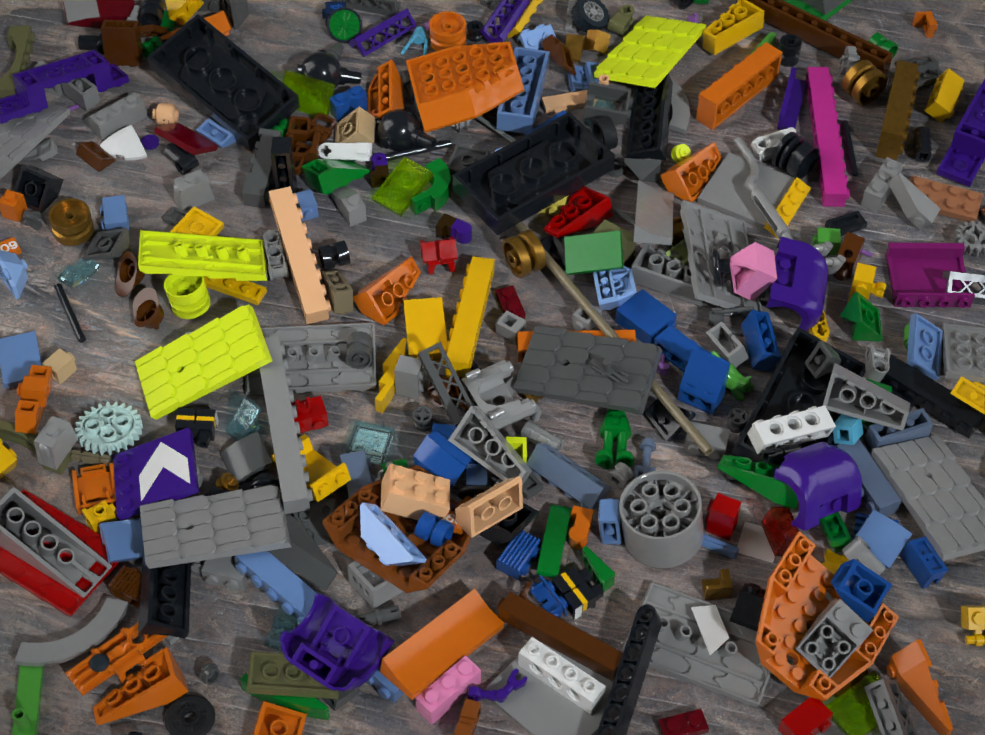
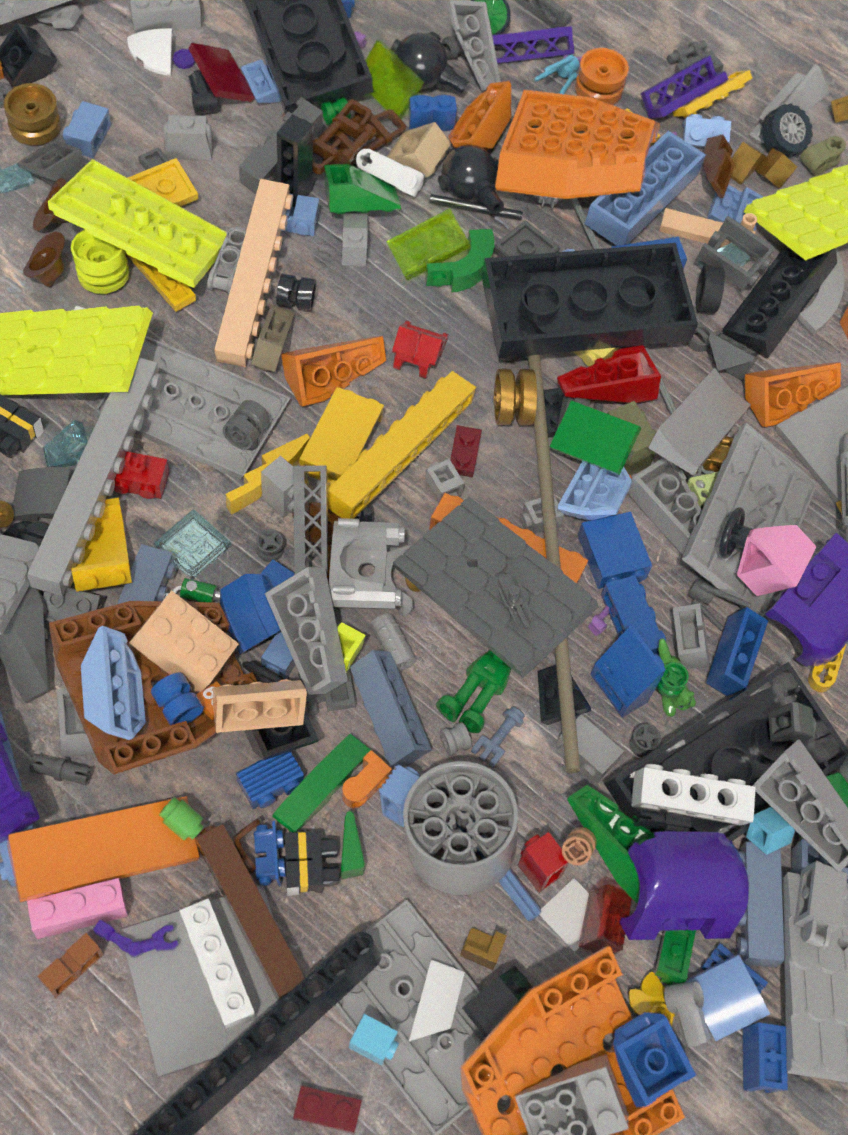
camera: 20 degrees right, 10 degrees up
(94, 155) = (114, 47): reddish brown slope -> none
(165, 114) = (219, 33): light nougat head -> none
(347, 41) = (474, 33): none -> light grey wedge
(379, 169) = (417, 212): dark brown leg -> none
(455, 228) = (456, 324): leg -> none
(474, 28) = (635, 86): black wheel -> none
(481, 601) = (181, 819): none -> bright green brick
(680, 152) = (790, 356): neon yellow wheel -> none
(687, 667) = (374, 1040): none -> medium azure brick
(736, 373) = (676, 675): none -> green wheel
(739, 488) = (581, 839): none -> nougat wheel
(902, 454) = (820, 903): none -> light grey brick

